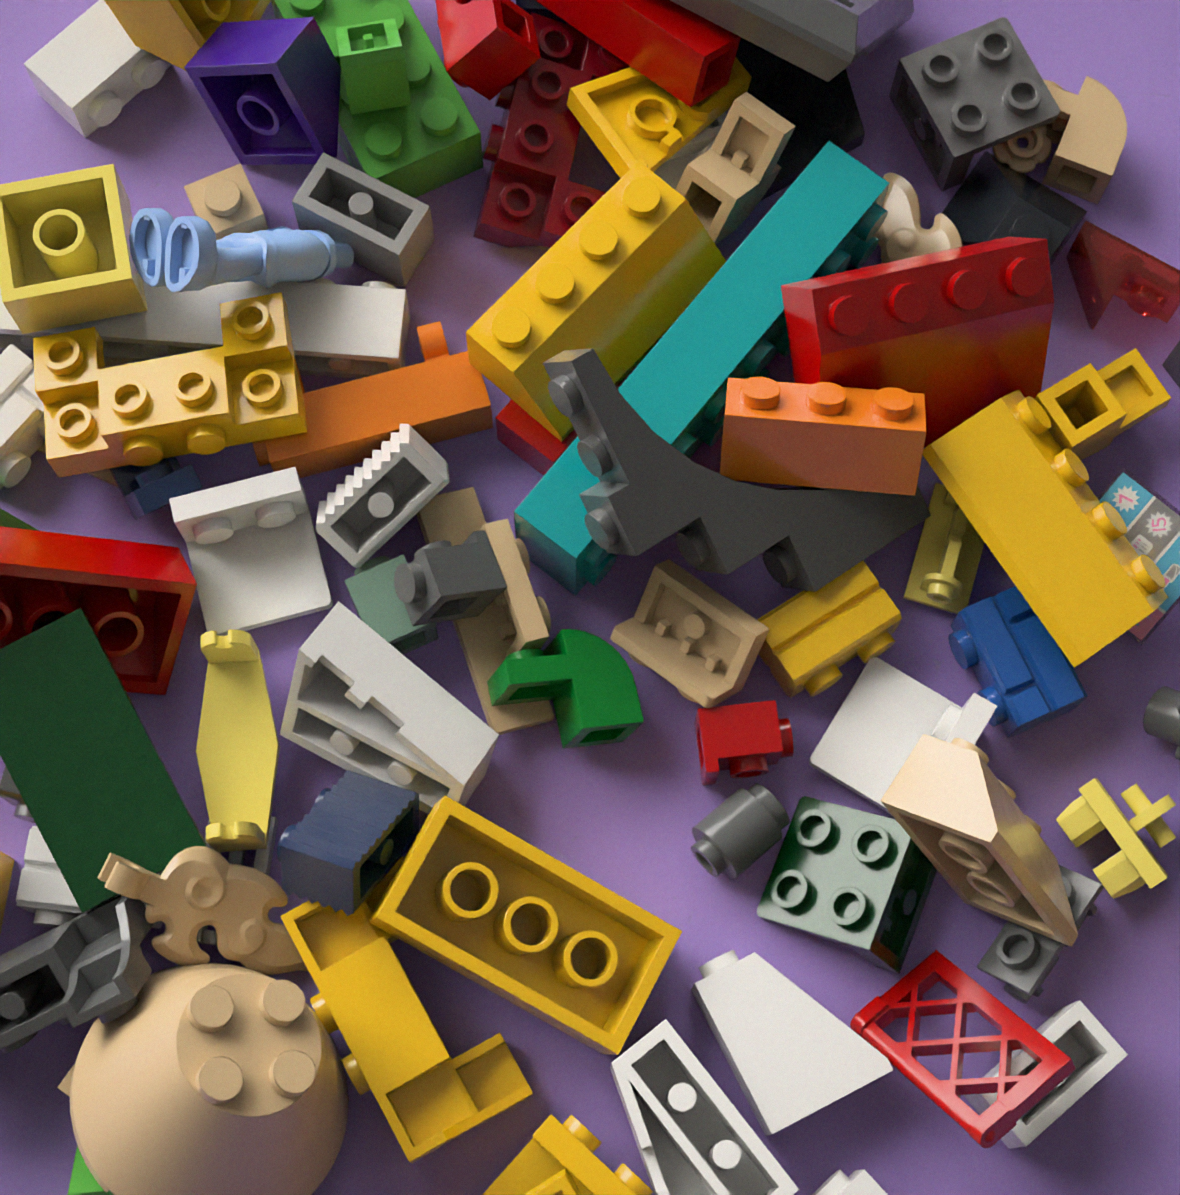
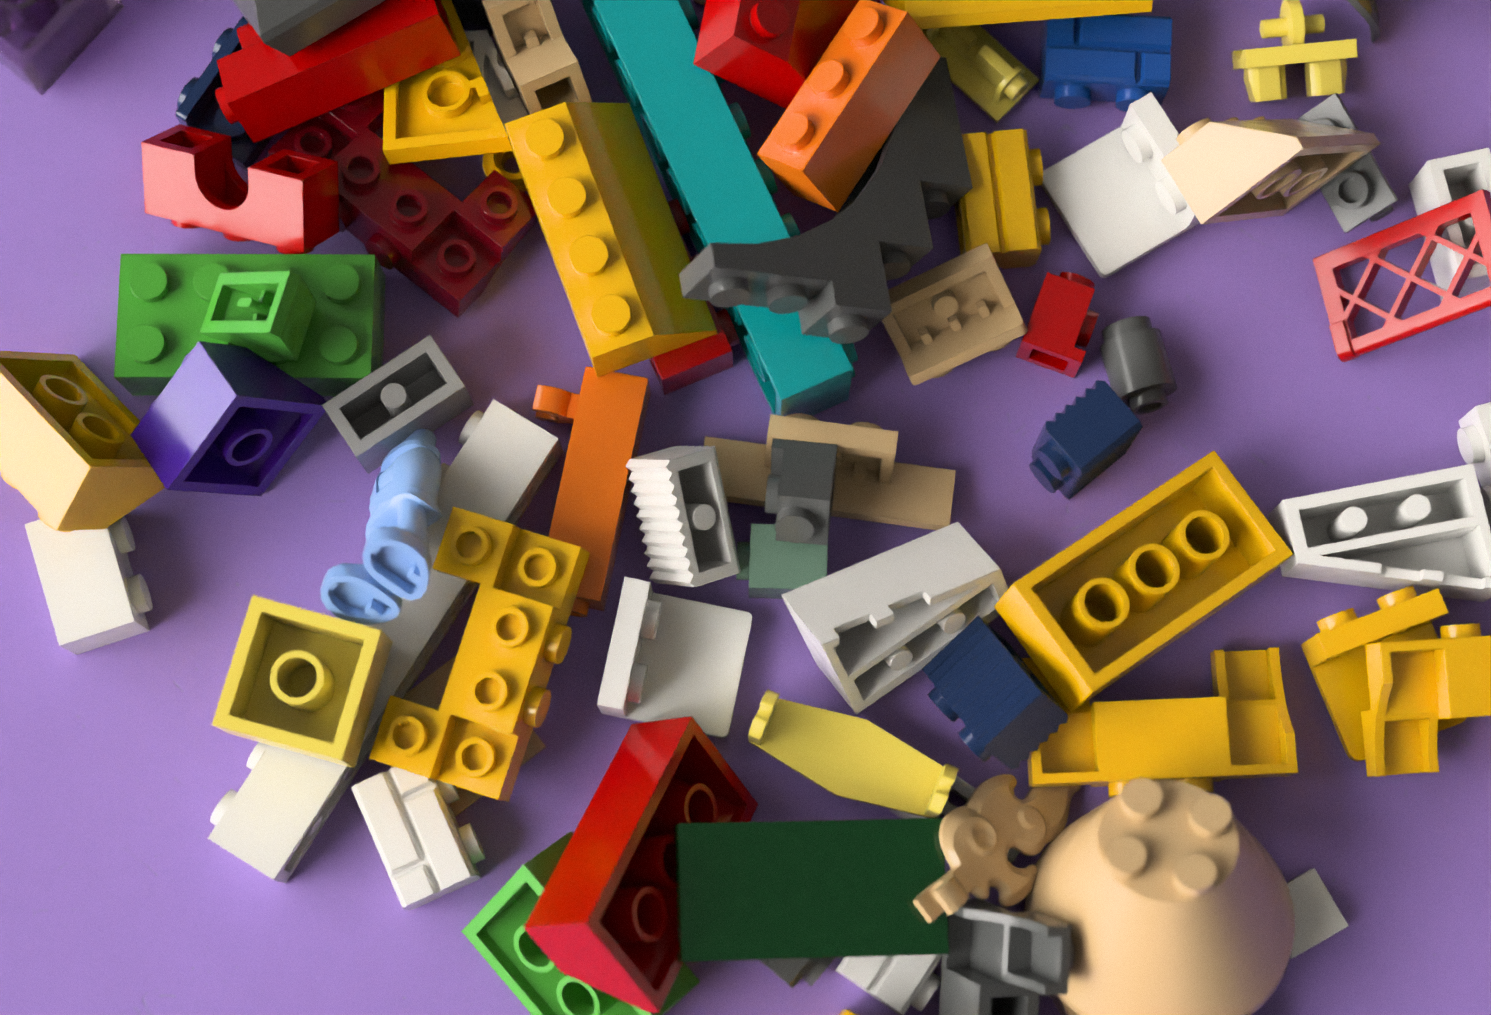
camera: 60 degrees left, 5 degrees up
(153, 485) = (570, 717): dark blue bracket -> none
(227, 202) = (321, 526): tan brick -> none
(584, 678) = (945, 426): green brick -> none
(629, 807) = (1083, 440): none -> dark blue brick
(781, 1041) = (1335, 423): white slope -> none
(849, 881) = (1221, 298): bracket -> none

